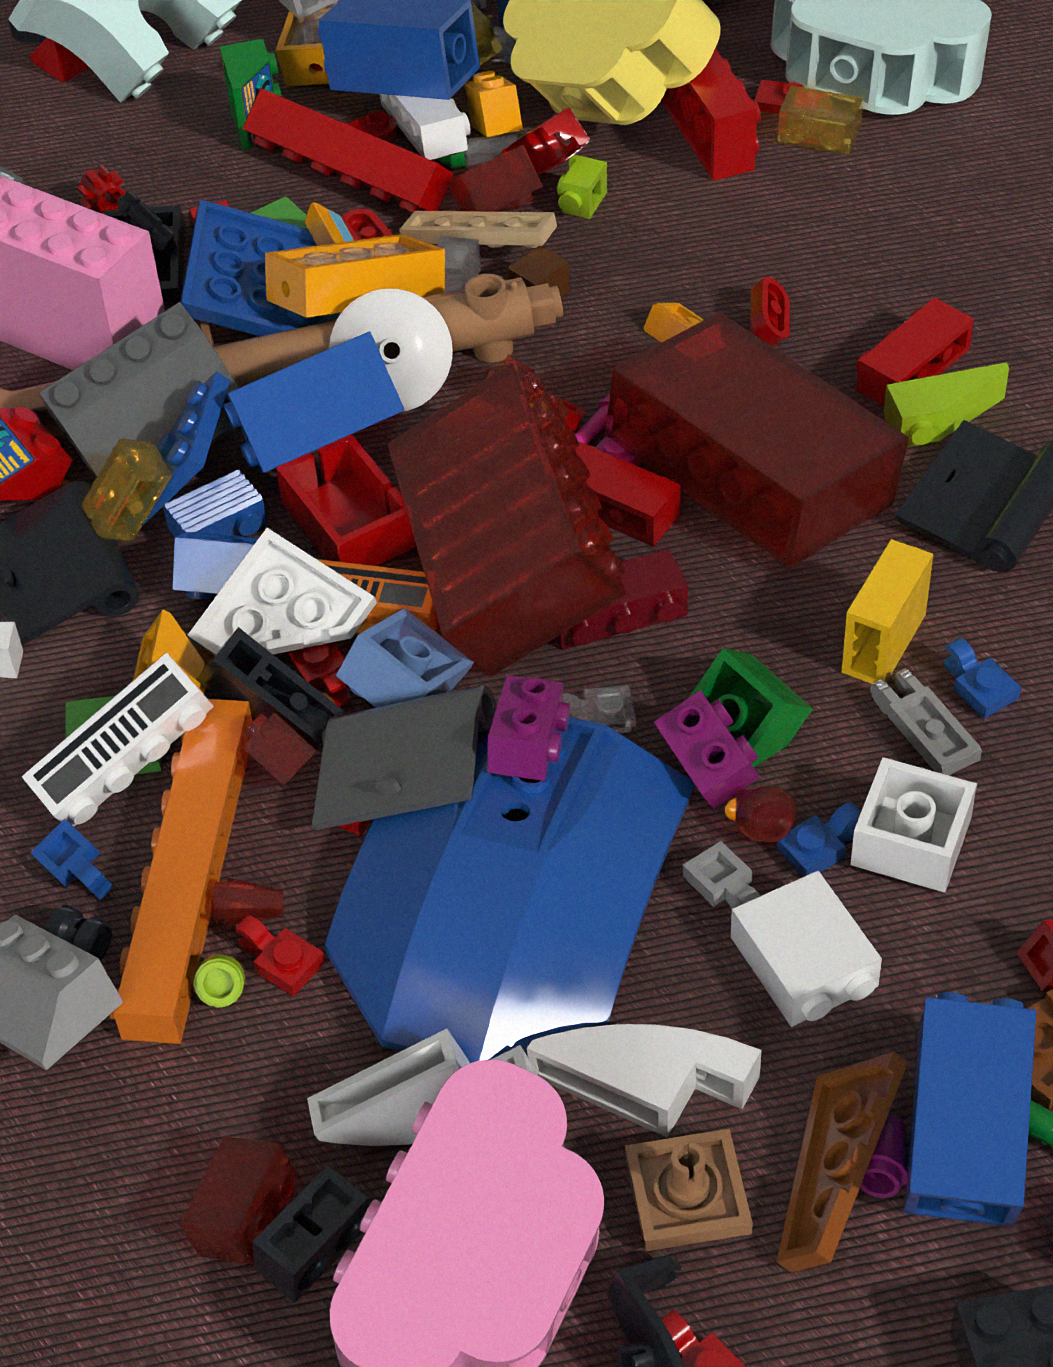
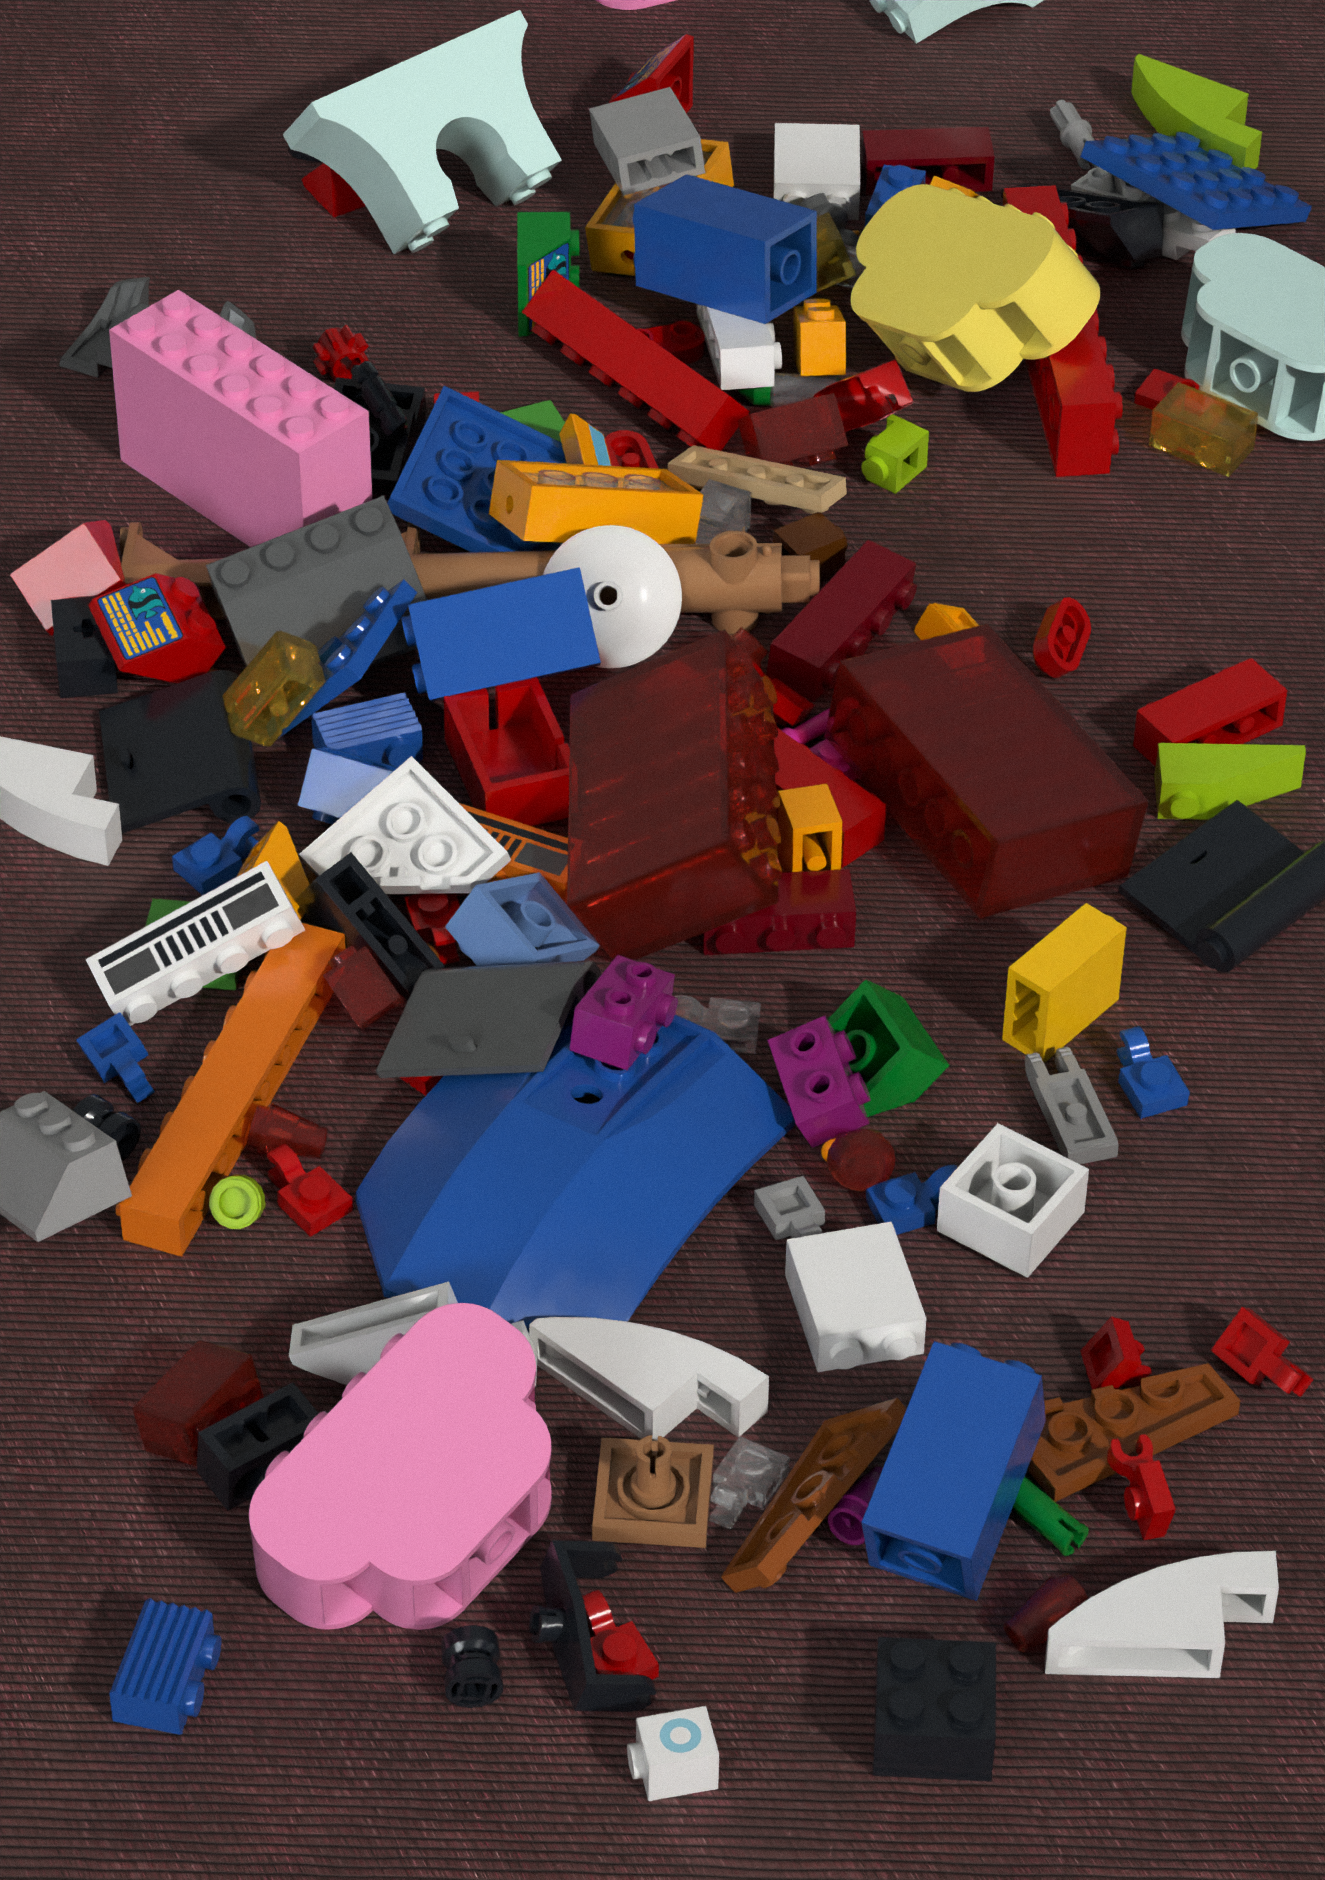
camera: 10 degrees right, 5 degrees down
(112, 655) = (216, 861): none -> blue plate
(586, 332) = (842, 619): none -> dark red brick
(631, 520) = (809, 830): none -> light orange brick
(766, 1151) = (746, 1476): none -> clear plate

